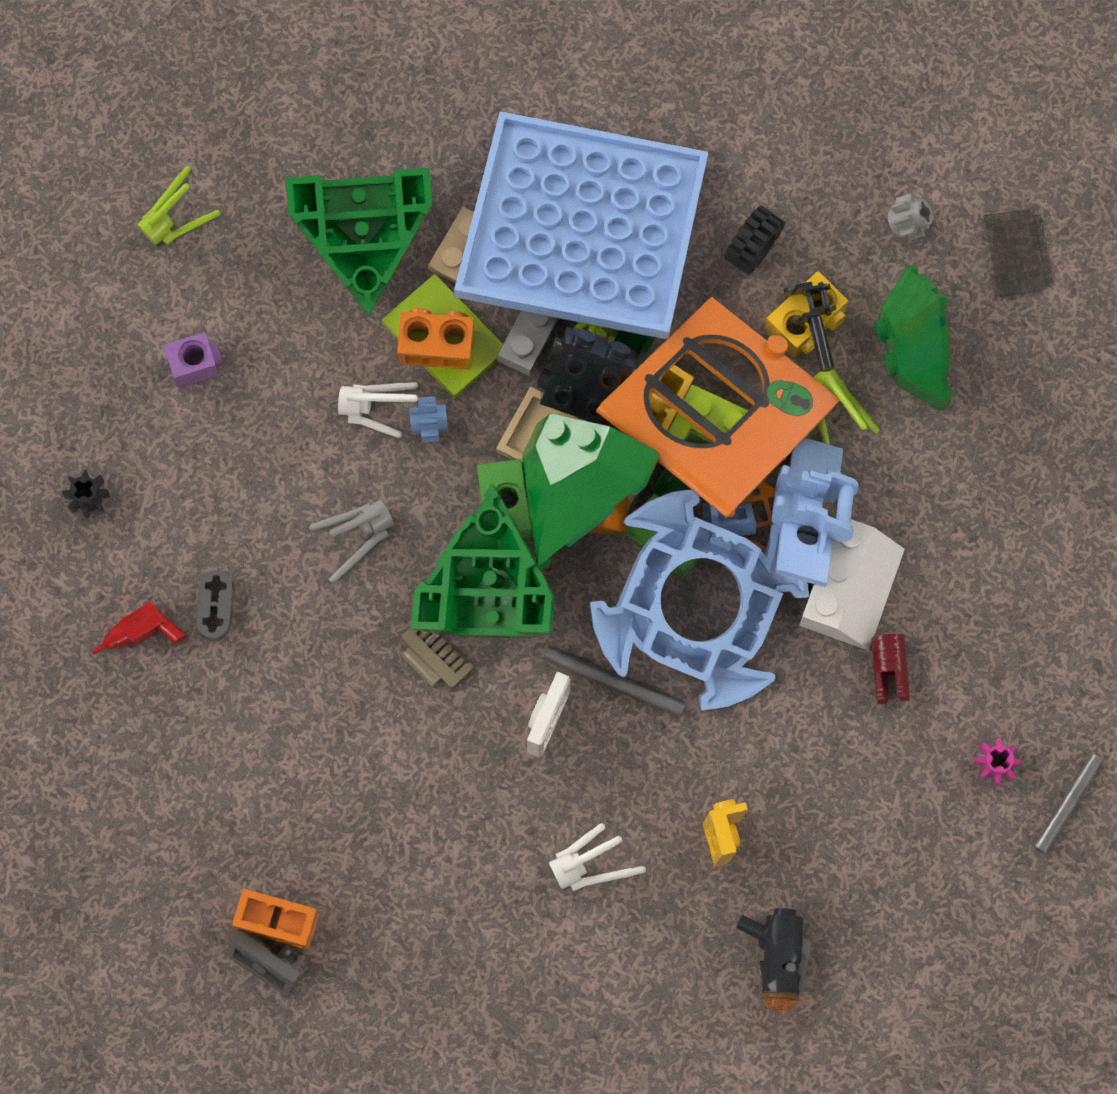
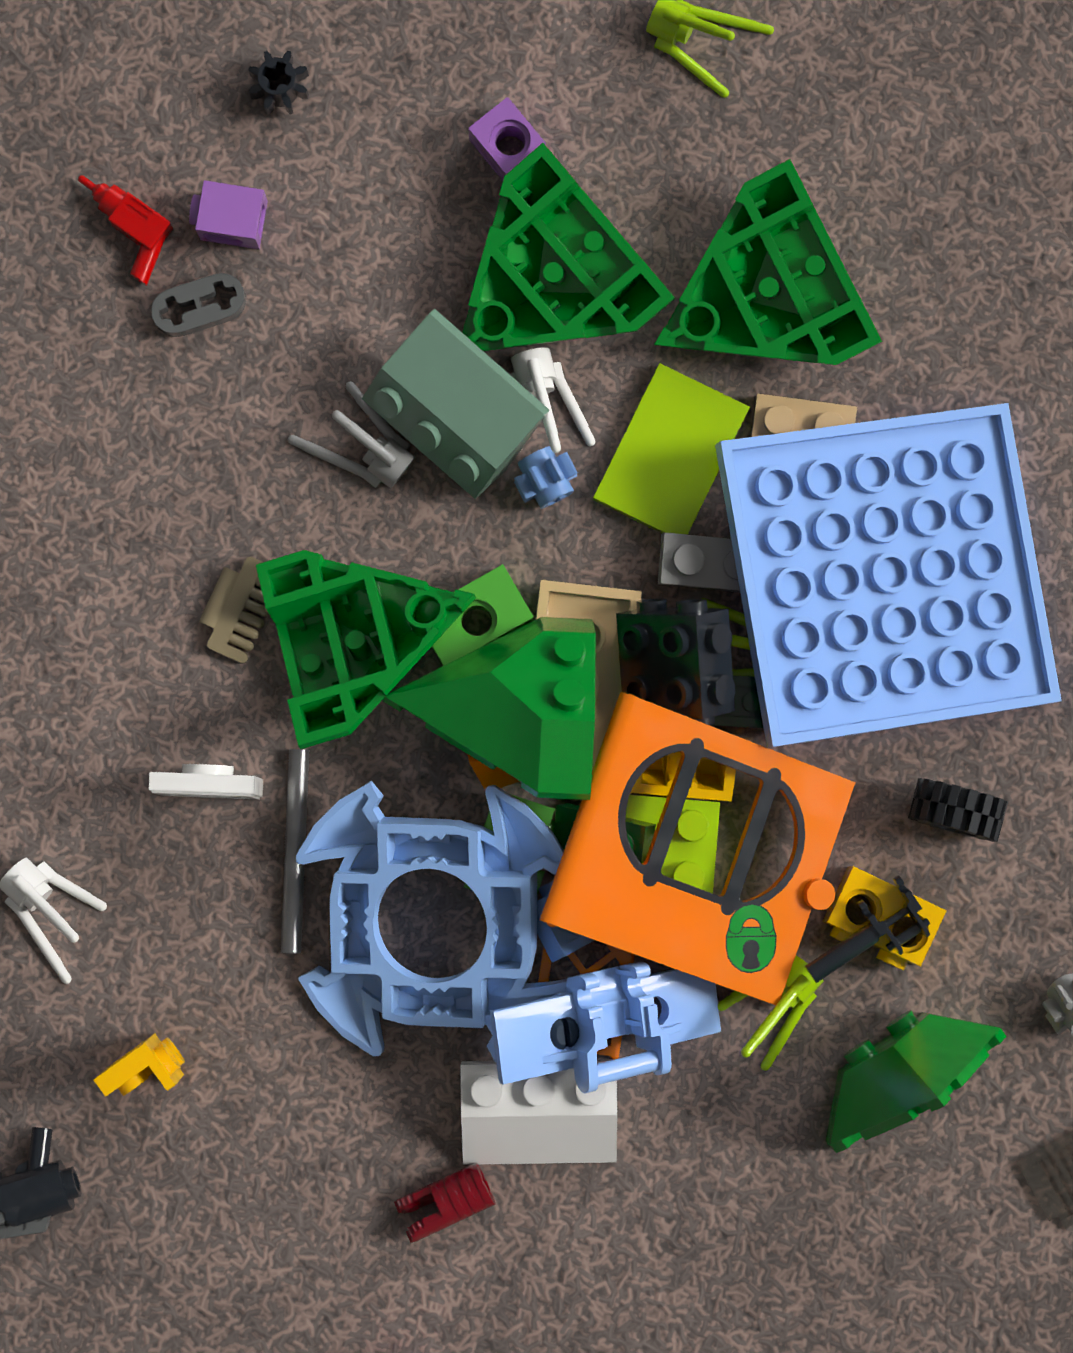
camera: 65 degrees right, 10 degrees up
(162, 559) = (229, 214): none -> medium lavender brick
(292, 357) = (556, 266): none -> green wedge
(356, 454) = (455, 404): none -> sand green slope
(434, 349) = (642, 446): orange brick -> none

